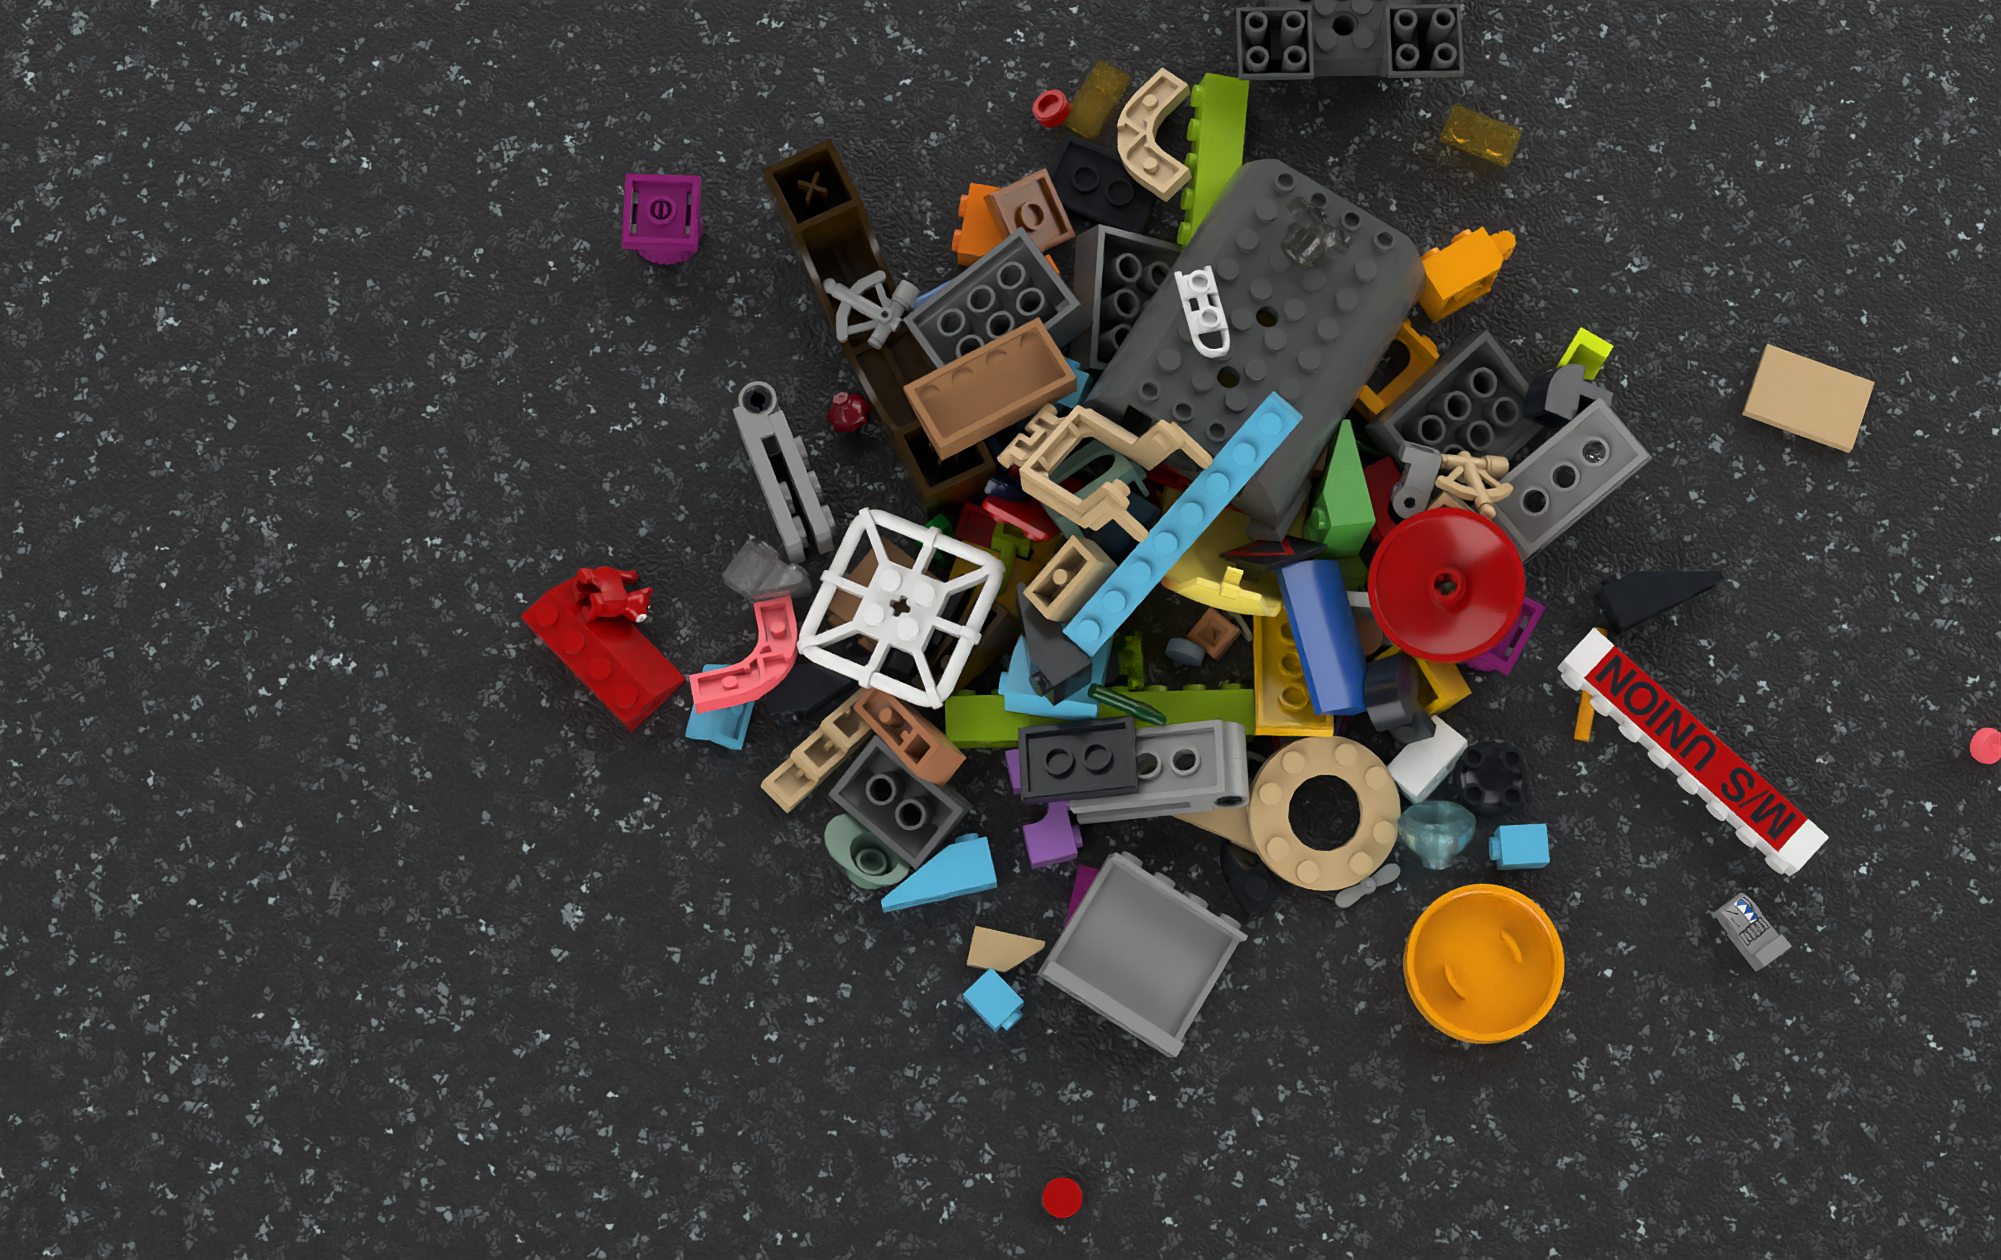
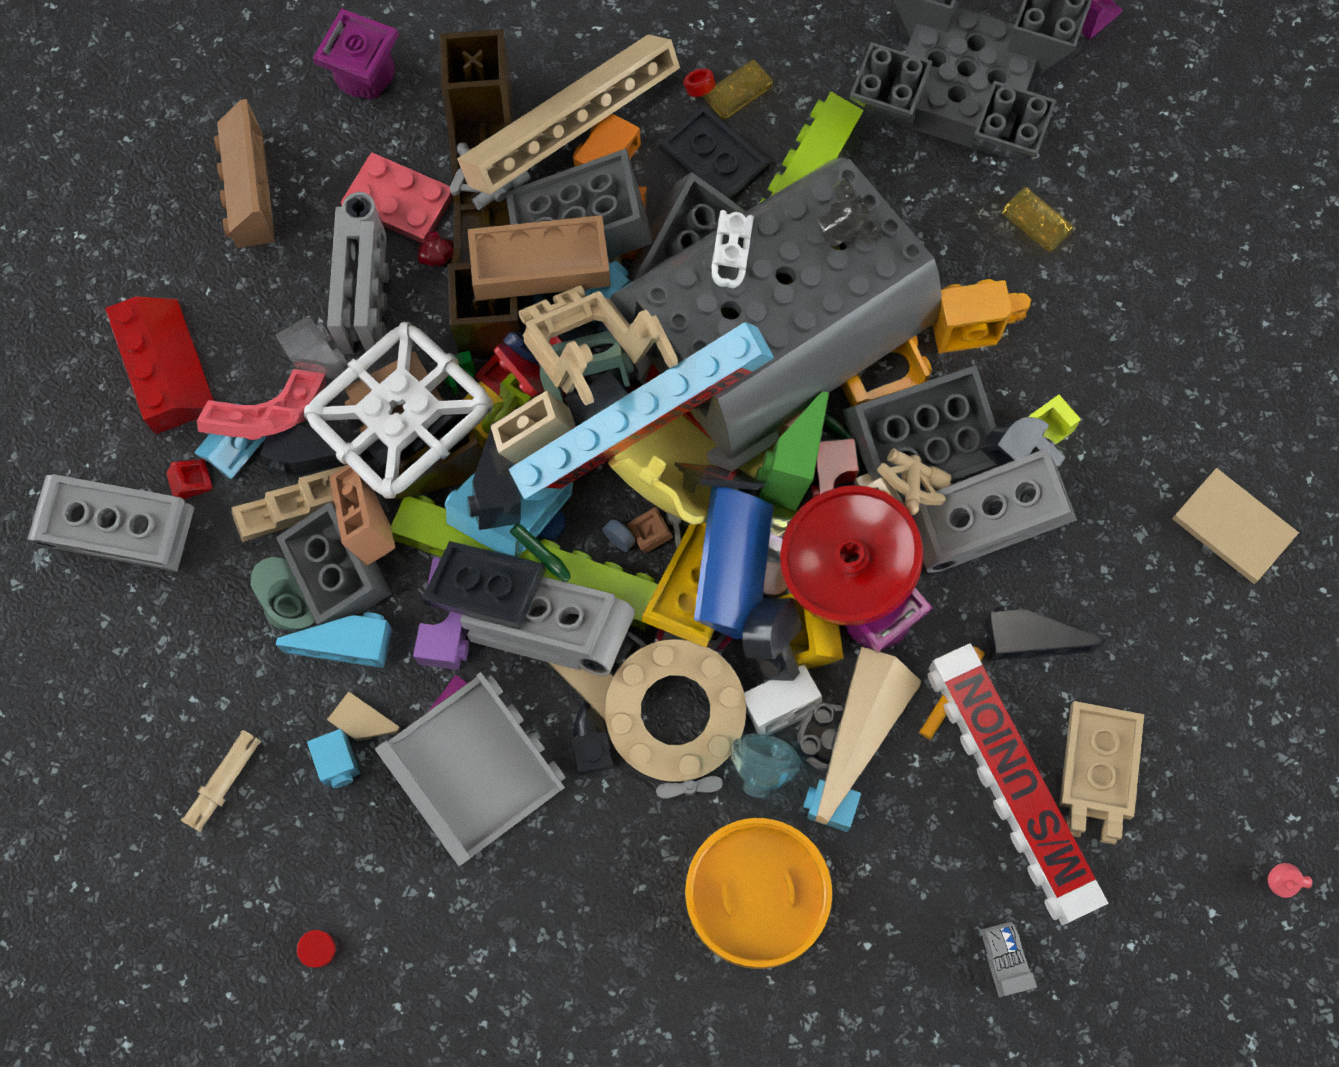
camera: 25 degrees right, 5 degrees down
(576, 844) = (111, 522): none -> light grey hinge
(597, 407) = (244, 178): none -> medium nougat slope
(608, 594) = (179, 318): red animal -> none
(693, 768) = (189, 478): none -> red slope
(788, 360) = (402, 196): none -> coral plate
(883, 1083) = (221, 780): none -> tan pin
(934, 204) = (568, 114): none -> tan brick
(1035, 207) = (648, 147): dark orange tile -> none
(1130, 658) = (569, 523): clear neon green plate -> none
(1138, 131) = (760, 118): tan plate -> none
(1417, 480) = (866, 461): light grey leg -> none
(1520, 724) = (874, 702): none -> tan wedge
(1769, 703) = (1101, 768): none -> tan tile

